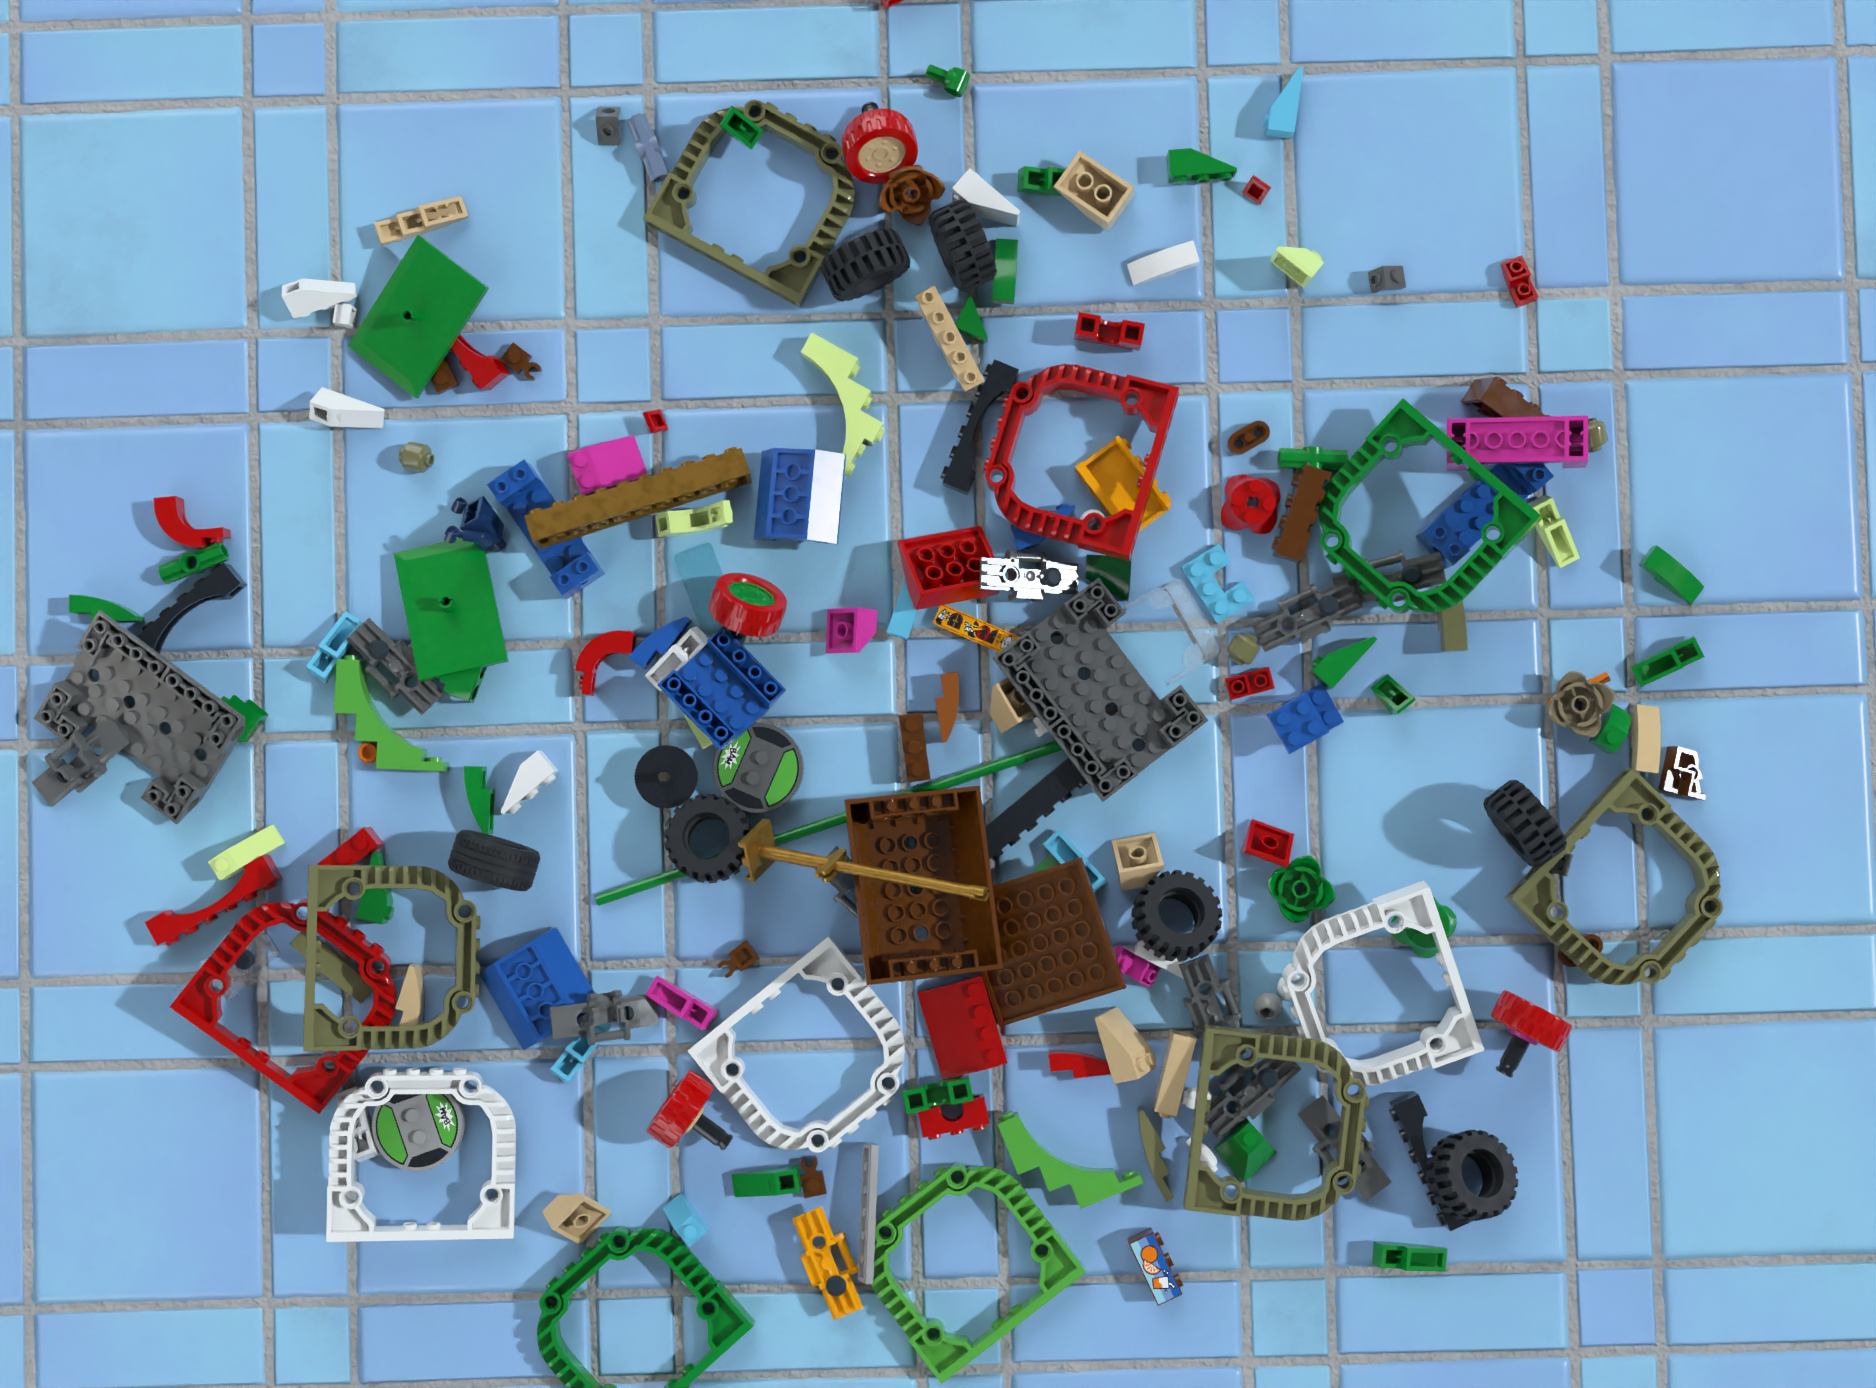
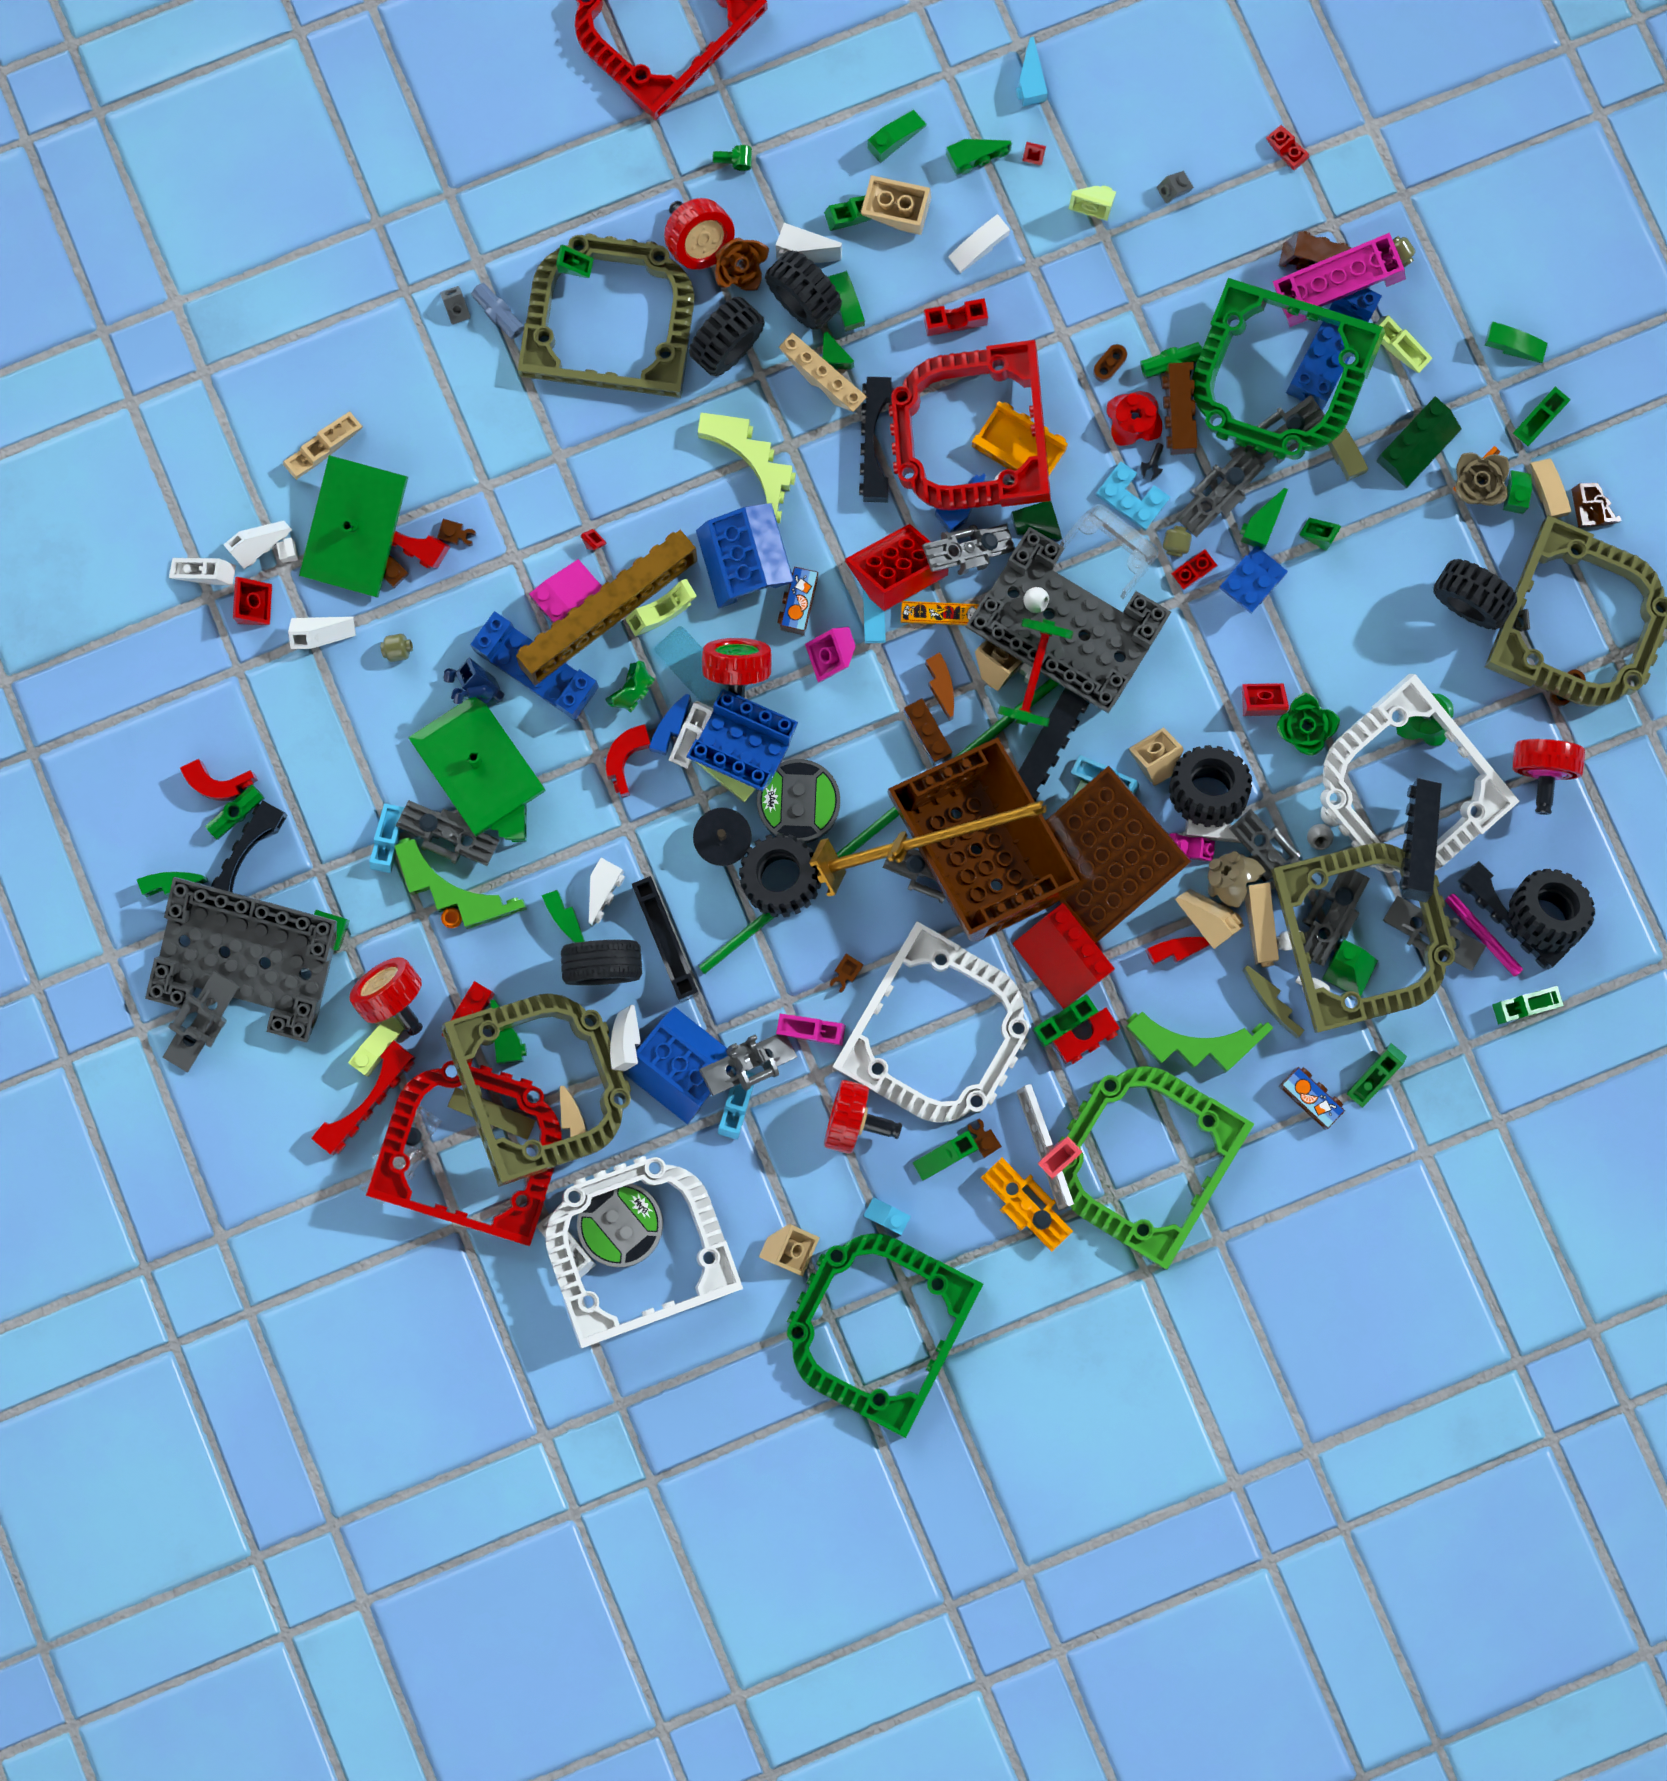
camera: 30 degrees left, 5 degrees down
(253, 305) = (202, 570): none -> white slope
(271, 808) = (387, 993): none -> red wheel
(289, 355) = (252, 602): none -> red slope
(490, 943) = (624, 1040): none -> white slope
(572, 881) = (665, 939): none -> black arch
(635, 591) = (635, 688): none -> green brick
(837, 563) = (798, 601): none -> brick
(875, 1234) = (1059, 1157): none -> coral slope
(1016, 770) = (1046, 628): none -> green piece
(1075, 656) = (1036, 600): none -> white piece
(1122, 117) = (895, 135): none -> green slope
(1161, 1014) = (1230, 875): none -> dark tan brick
(1230, 1268) = (1377, 1075): none -> green slope
(1253, 555) = (1153, 463): none -> black bar
(1366, 1059) = (1421, 840): none -> black brick
(1394, 1168) = (1483, 934): none -> dark pink axle
(1532, 640) = (1420, 442): none -> dark green slope

